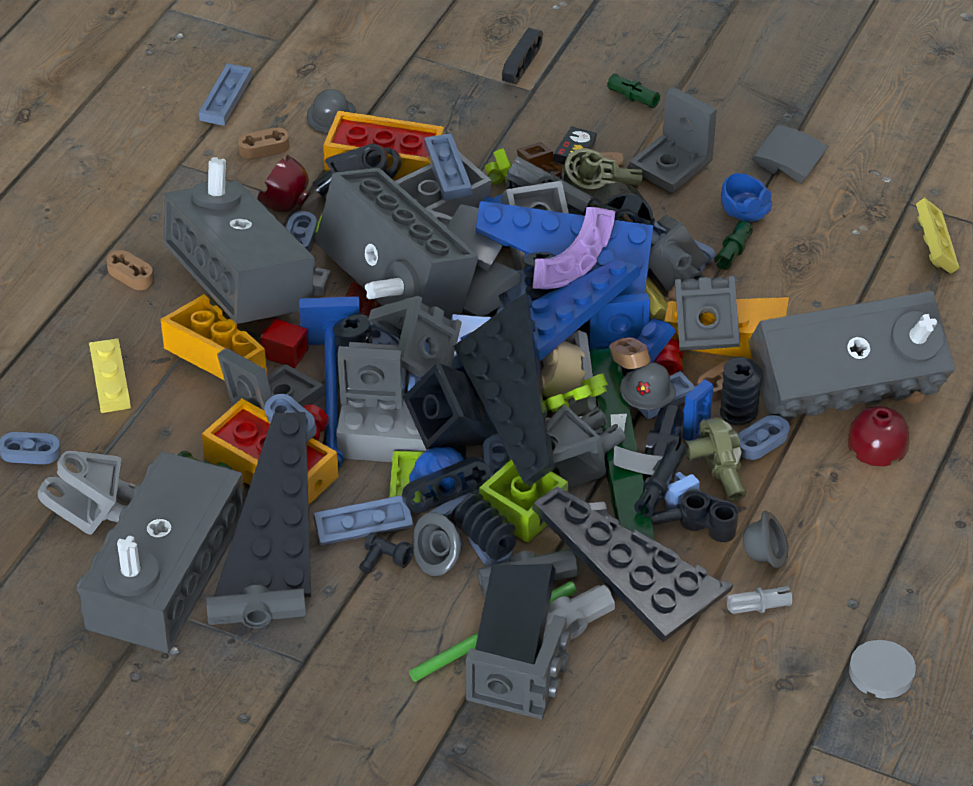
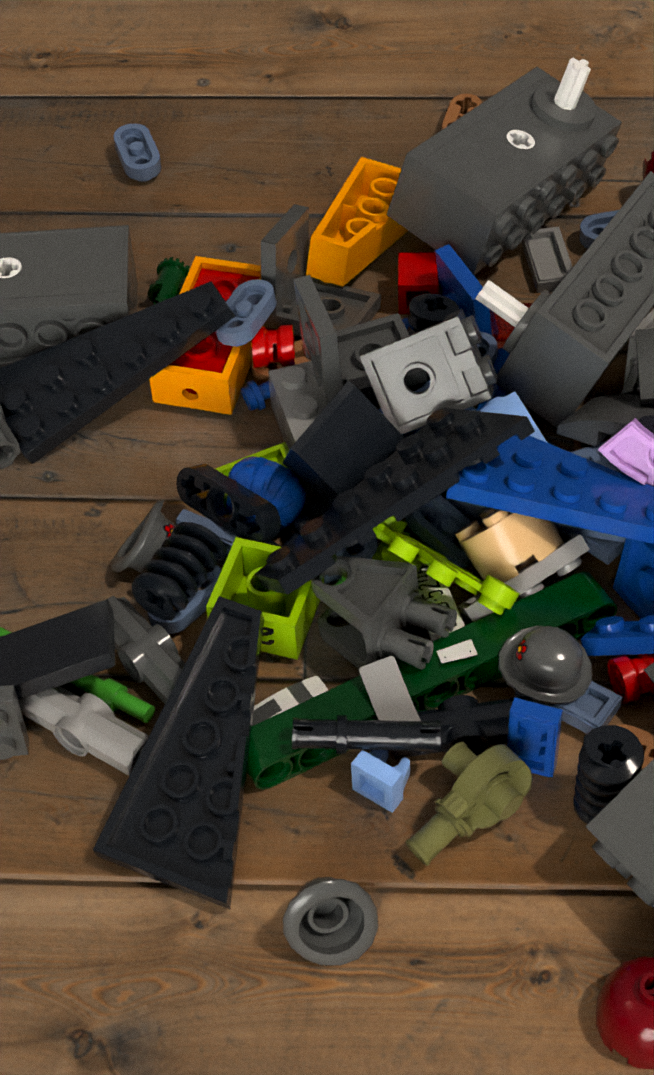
camera: 70 degrees right, 5 degrees up
(90, 493) = (74, 196): light grey piece -> none
(109, 375) = (287, 170): light yellow plate -> none
(361, 520) = (152, 452): sand blue plate -> none
(376, 546) = (122, 516): black piece -> none
(630, 353) = (578, 609): medium nougat beam -> none
(702, 511) = (346, 826): black beam -> none
(758, 438) = (555, 846): sand blue plate -> none
(759, 600) = (217, 949): light grey axle -> none

